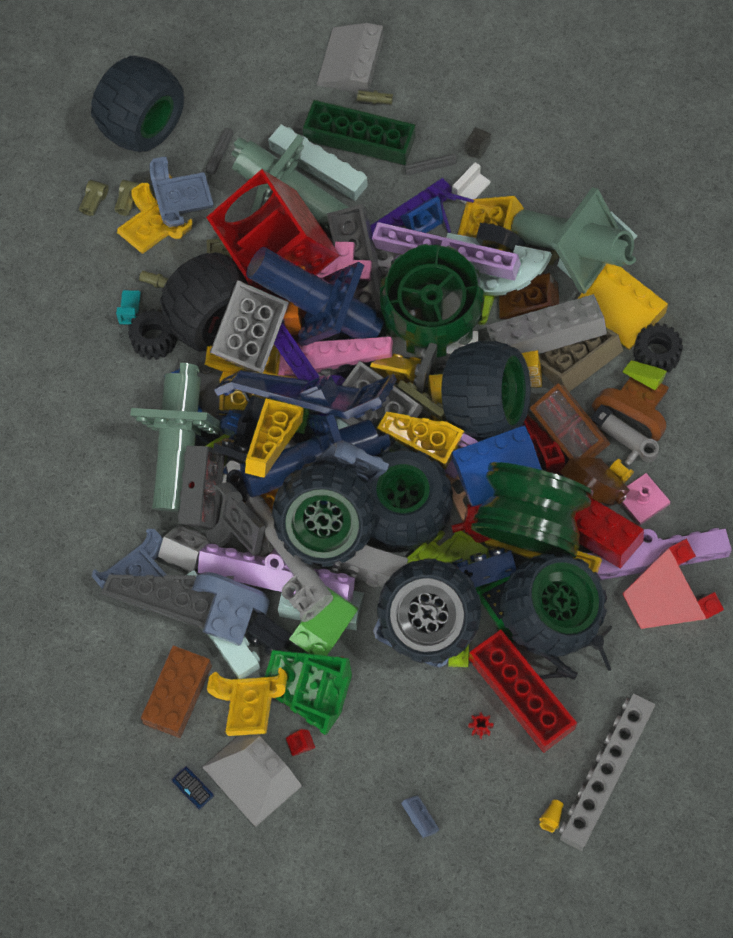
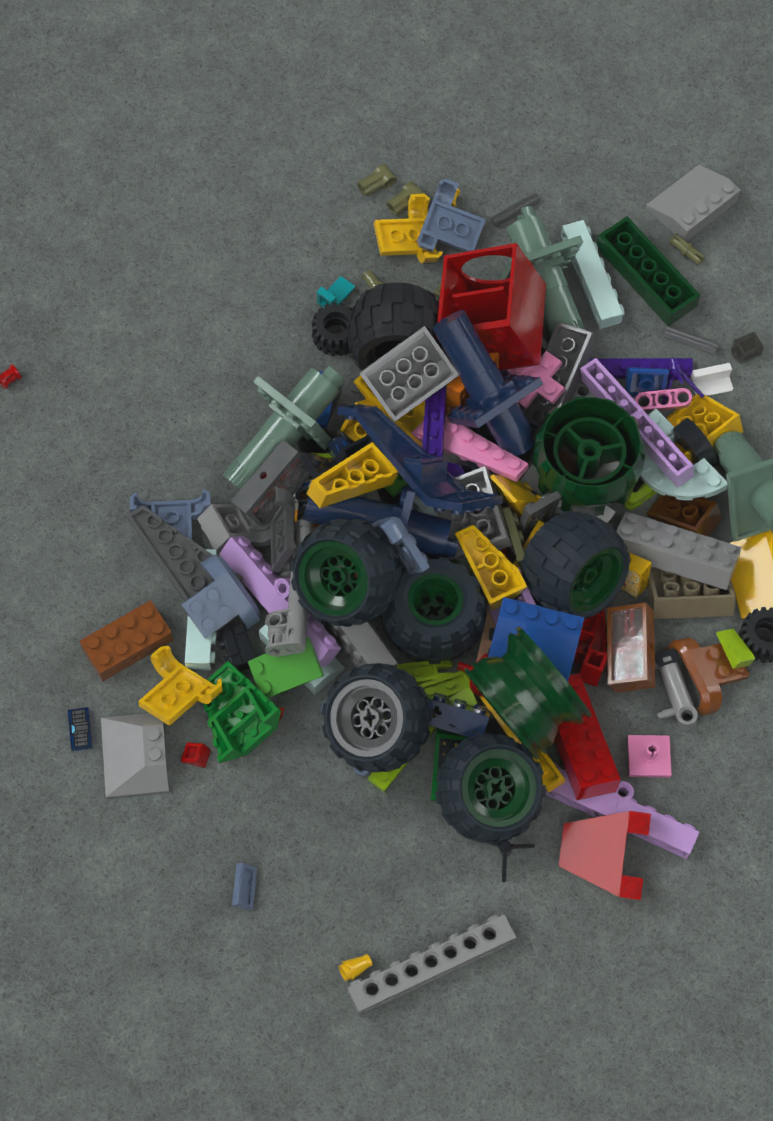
camera: 30 degrees right, 0 degrees up
(137, 103) = (468, 122): black wheel -> none
(453, 216) = (672, 394): none -> bright pink beam
(480, 731) = (352, 854): red gear -> none
(522, 691) = (411, 844): red brick -> none
(561, 671) = (461, 852): black plant -> none
(597, 477) = (614, 709): reddish brown brick -> none
(621, 471) = (647, 718): yellow bush -> none

